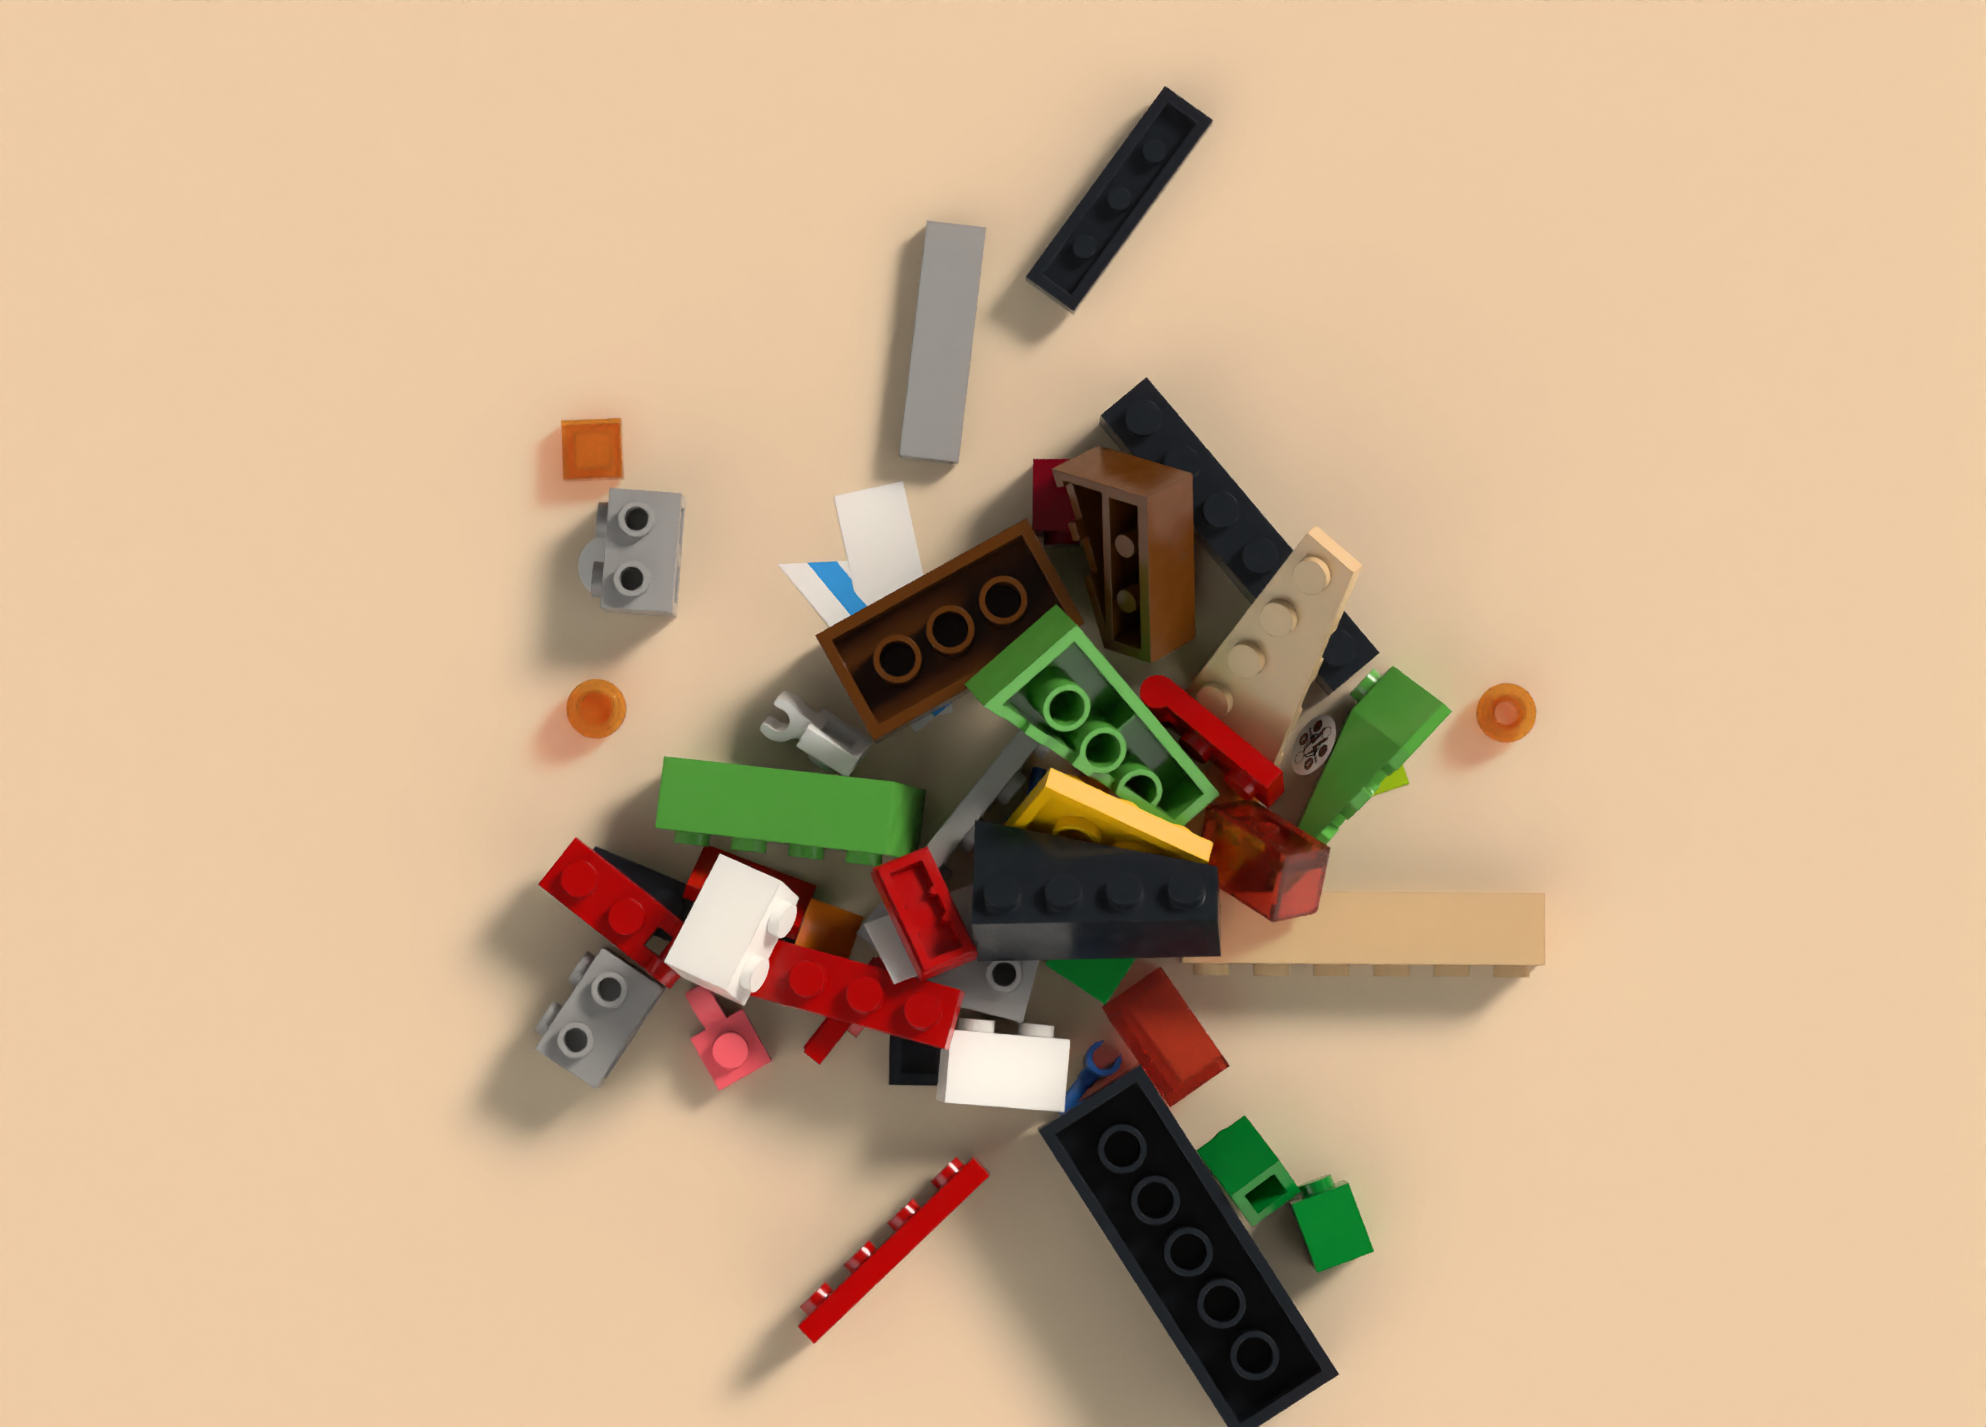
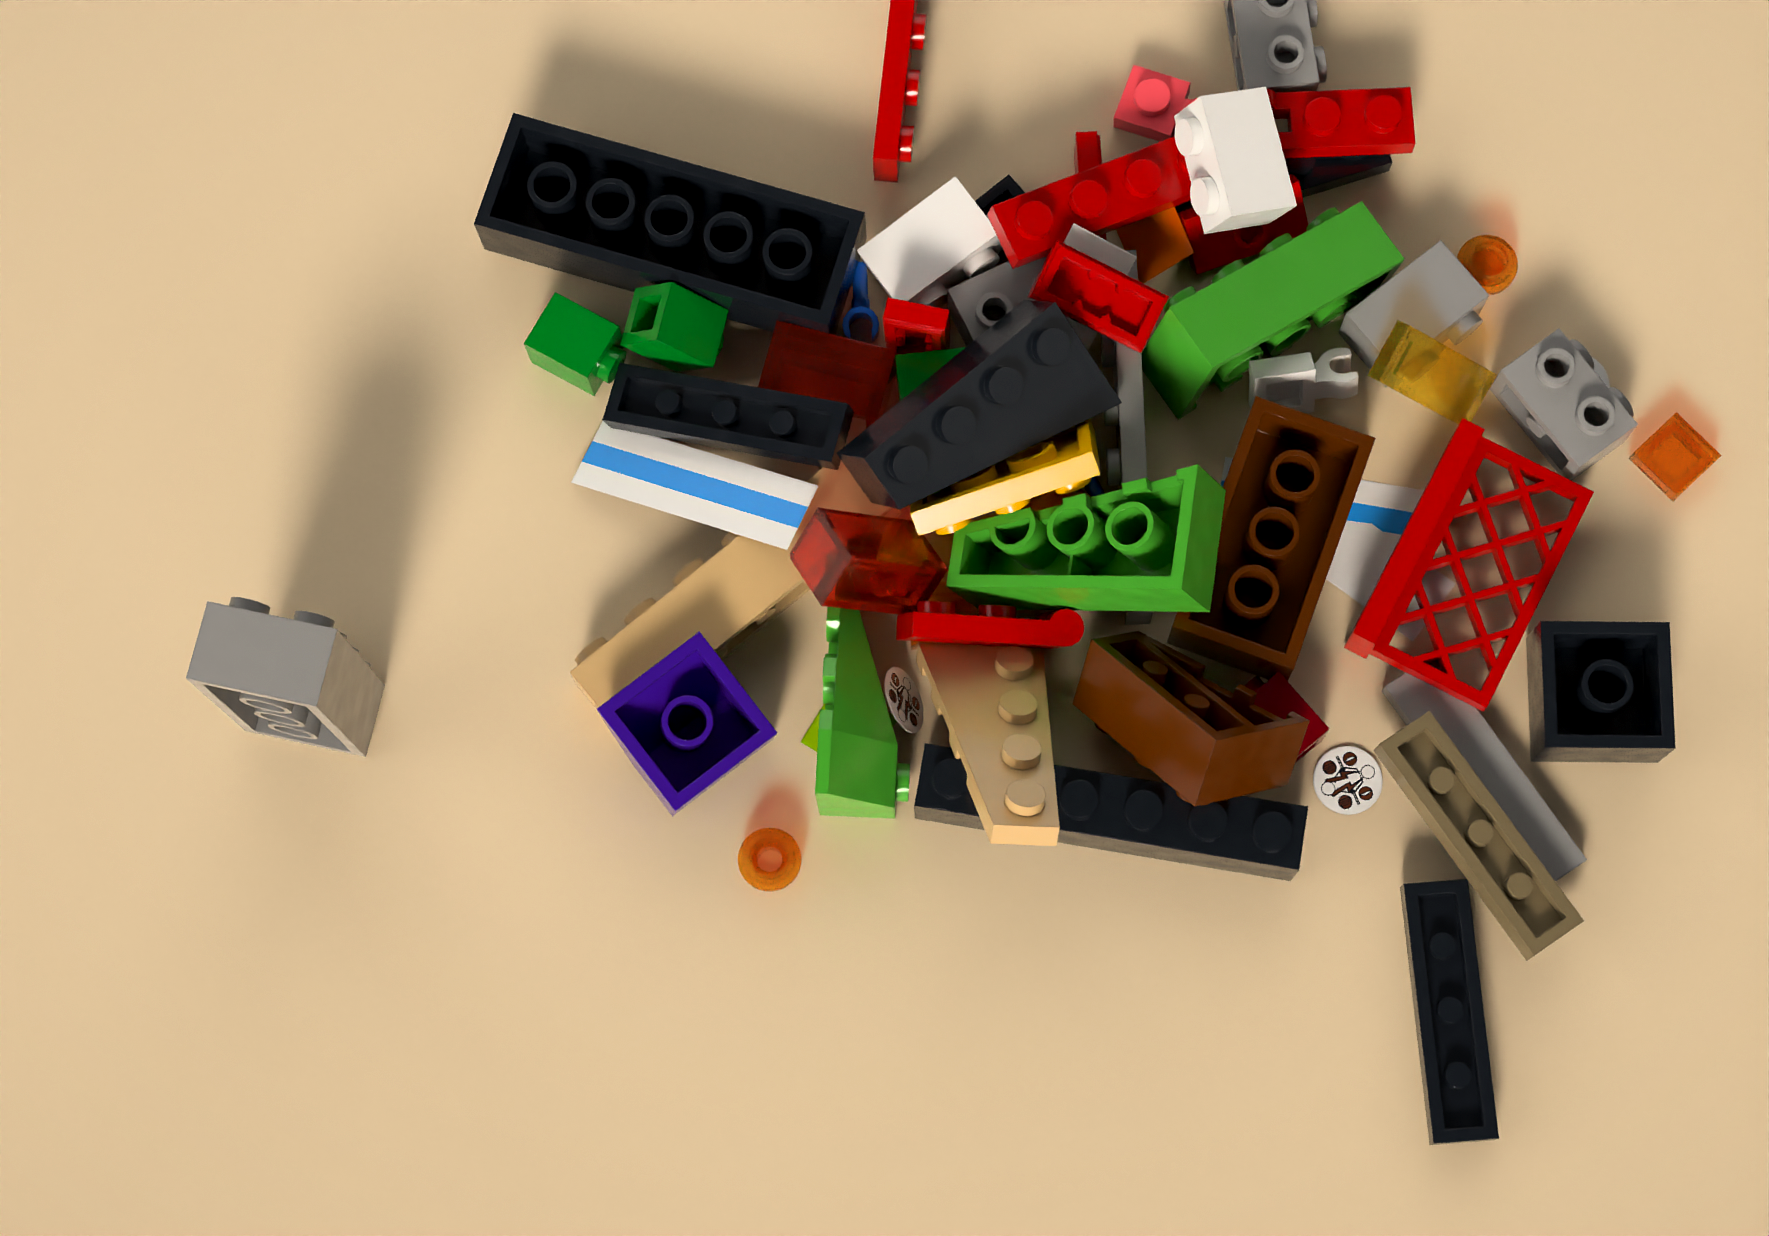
camera: 140 degrees right, 10 degrees down
(688, 712) = (1428, 294): none -> light grey brick
(722, 653) = (1431, 374): none -> clear yellow tile
(815, 323) = (1600, 691): none -> black brick
(839, 542) = (1420, 541): none -> red fence
(992, 299) = (1478, 835): none -> dark tan plate
(1040, 422) = (1347, 780): none -> white sticker
(1072, 1010) = (915, 327): none -> red plate
(1266, 1066) = (728, 415): none -> black plate
(1333, 1036) = (696, 485): none -> white sticker
(1492, 850) = (686, 723): none -> dark purple slope
(1765, 1117) = (286, 676): none -> light grey brick

